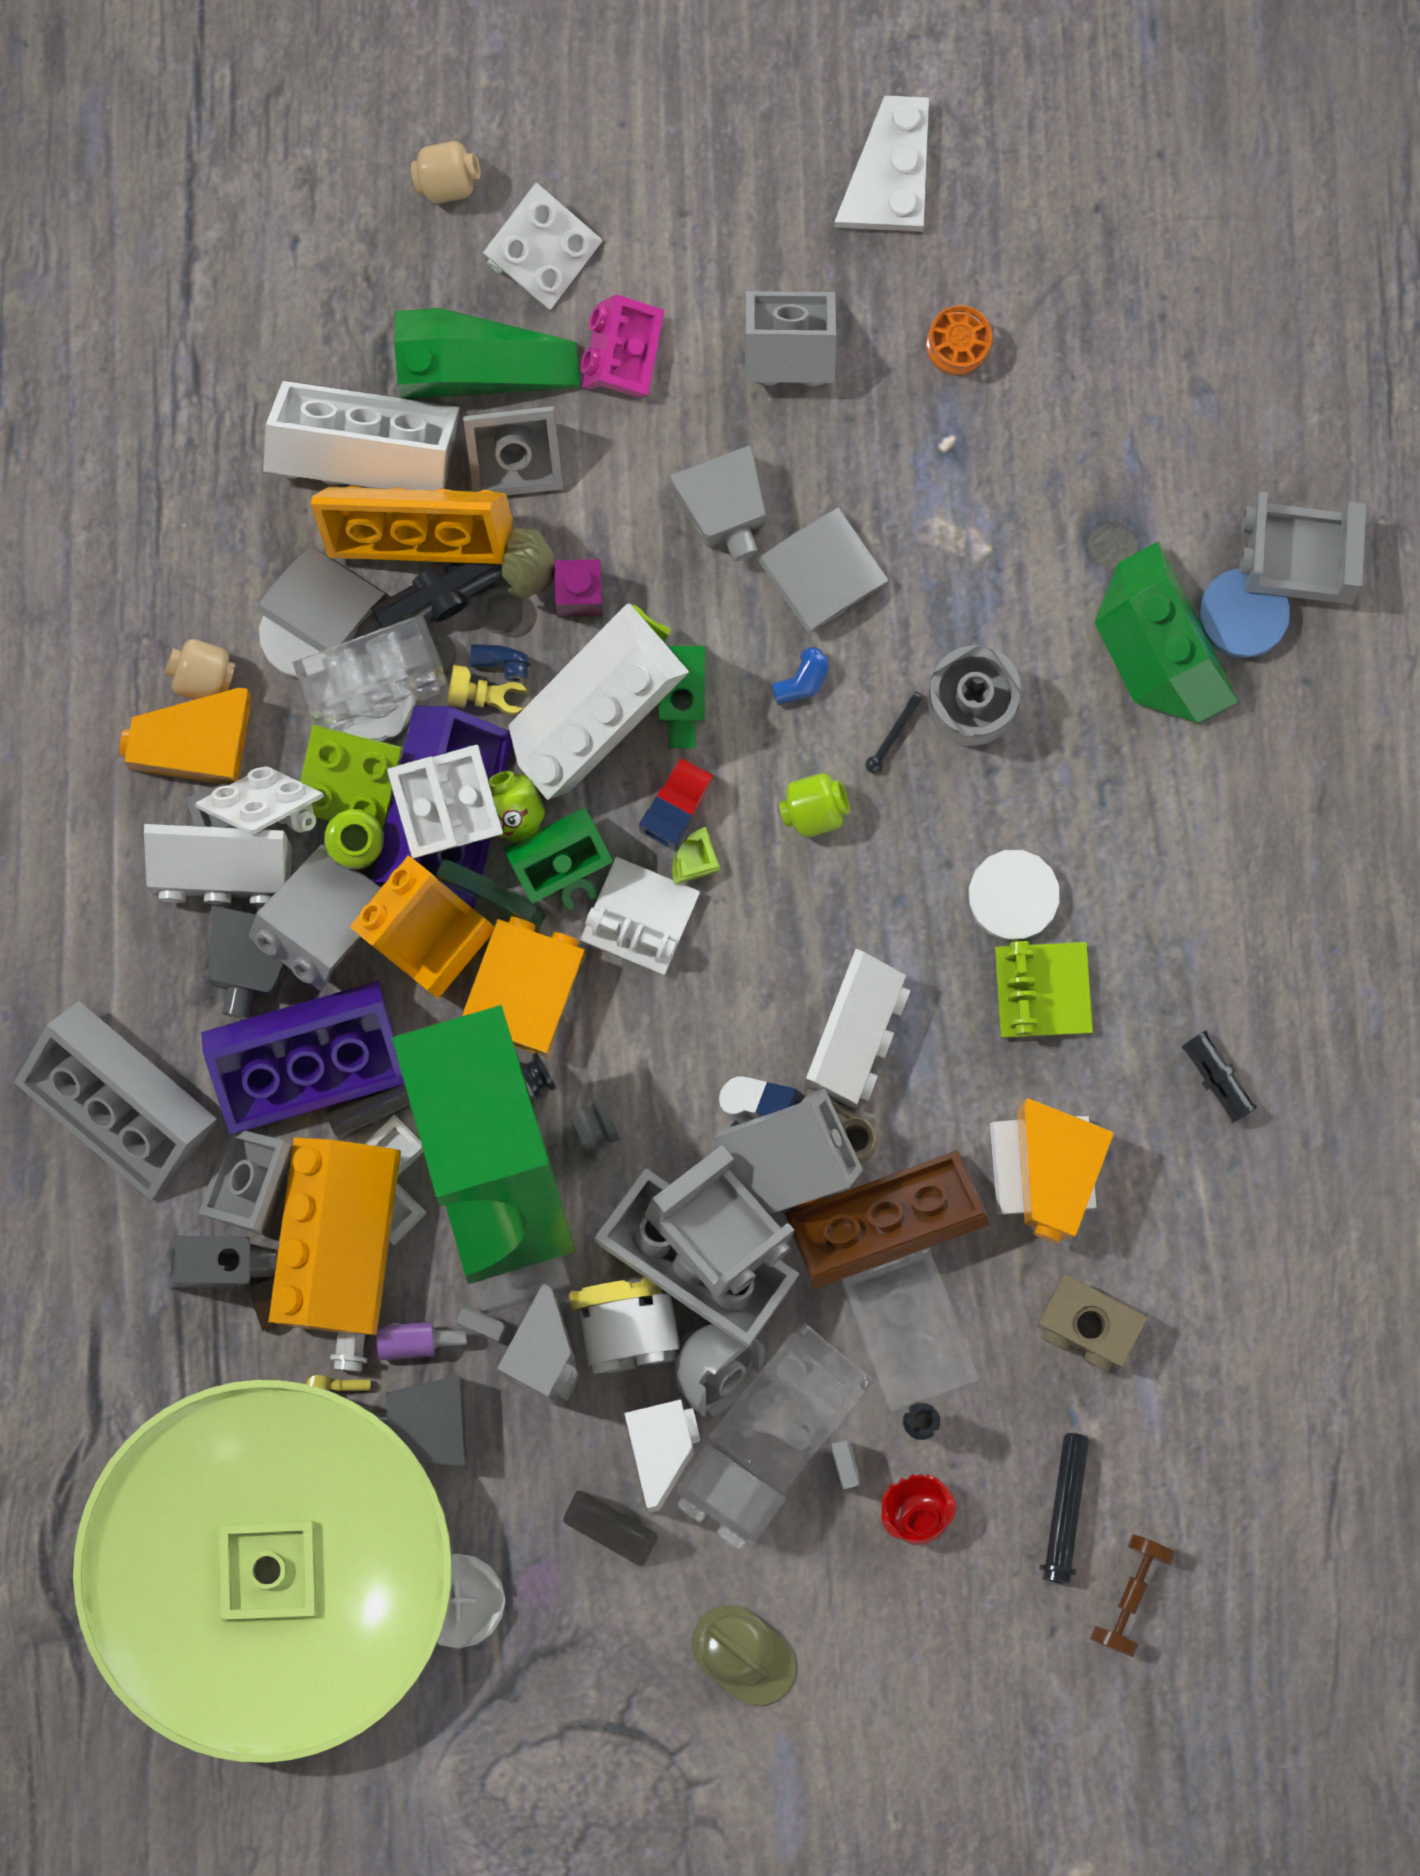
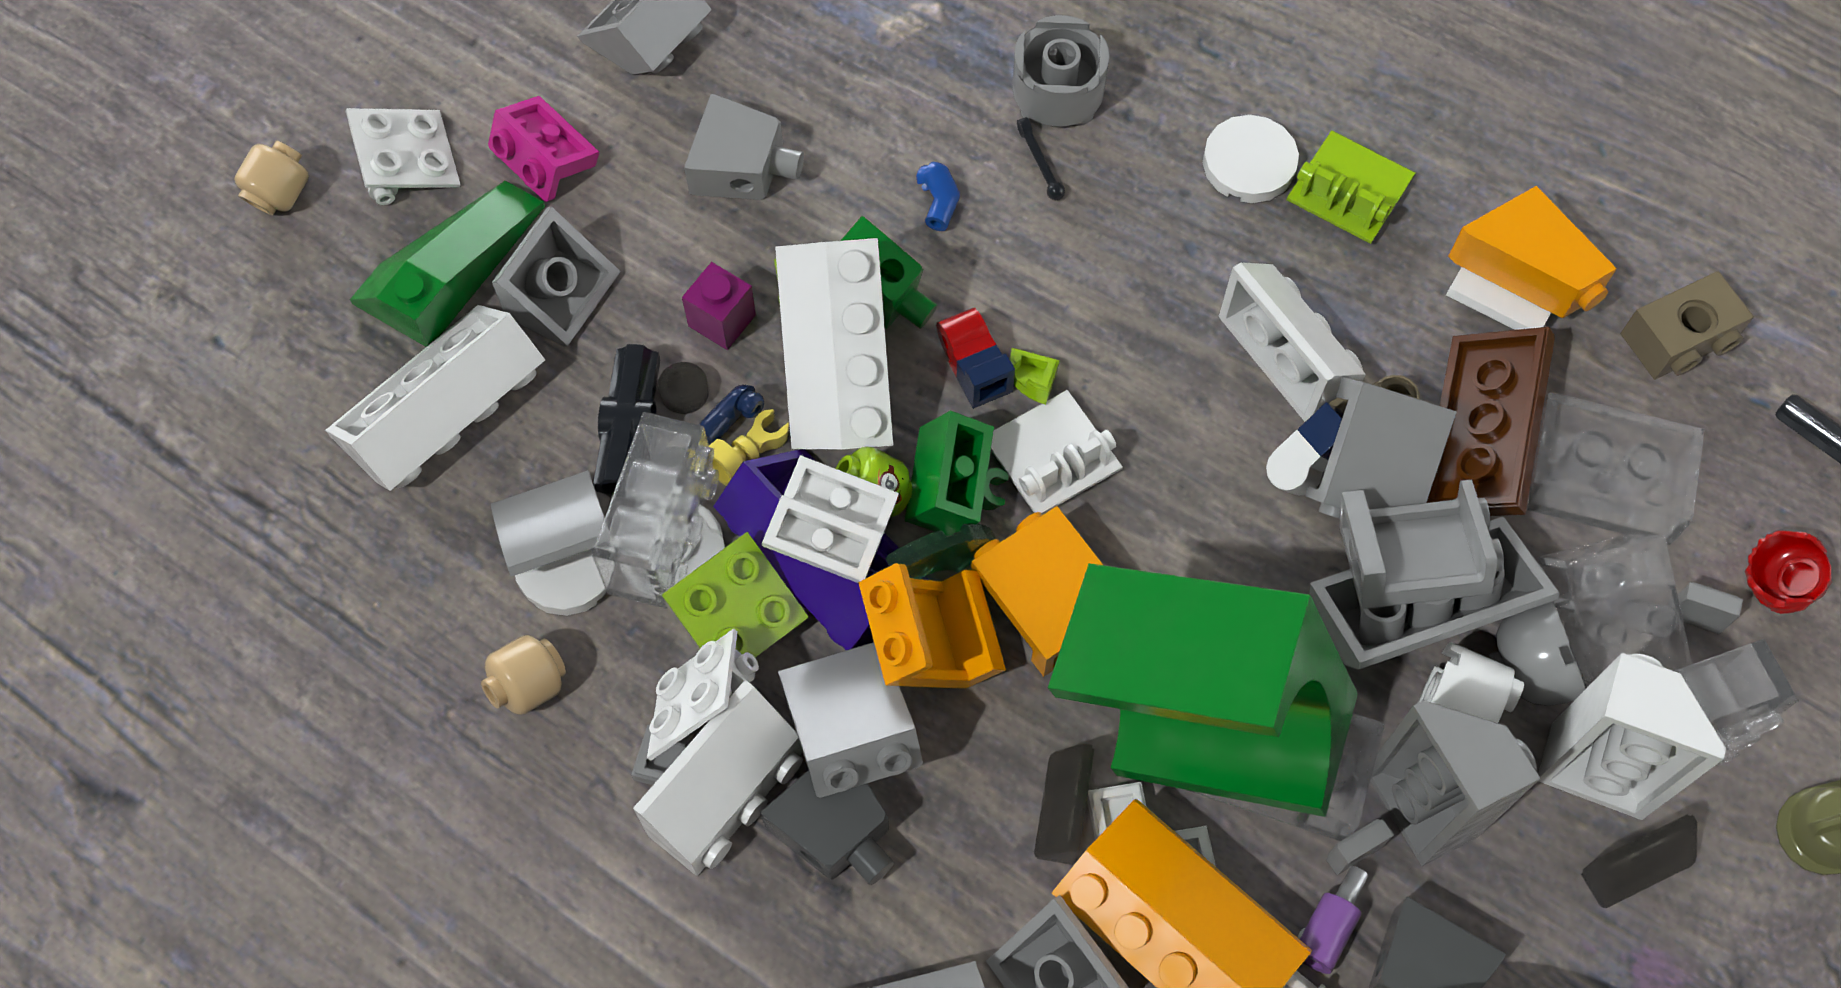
camera: 55 degrees left, 15 degrees down
(191, 739) = (579, 728): light orange slope -> none
(302, 1057) = (972, 834): dark purple slope -> none
(354, 839) = (799, 633): lime head -> none
(413, 524) = (552, 388): light orange slope -> none
(528, 563) = (664, 325): olive hair -> none
(612, 1292) = (1418, 684): light yellow tile -> none
(815, 805) = (1061, 248): lime head -> none
(823, 570) = (859, 121): light grey slope -> none
(932, 1417) = (1714, 505): black pin -> none
(1219, 1076) = (1549, 107): black pin -> none

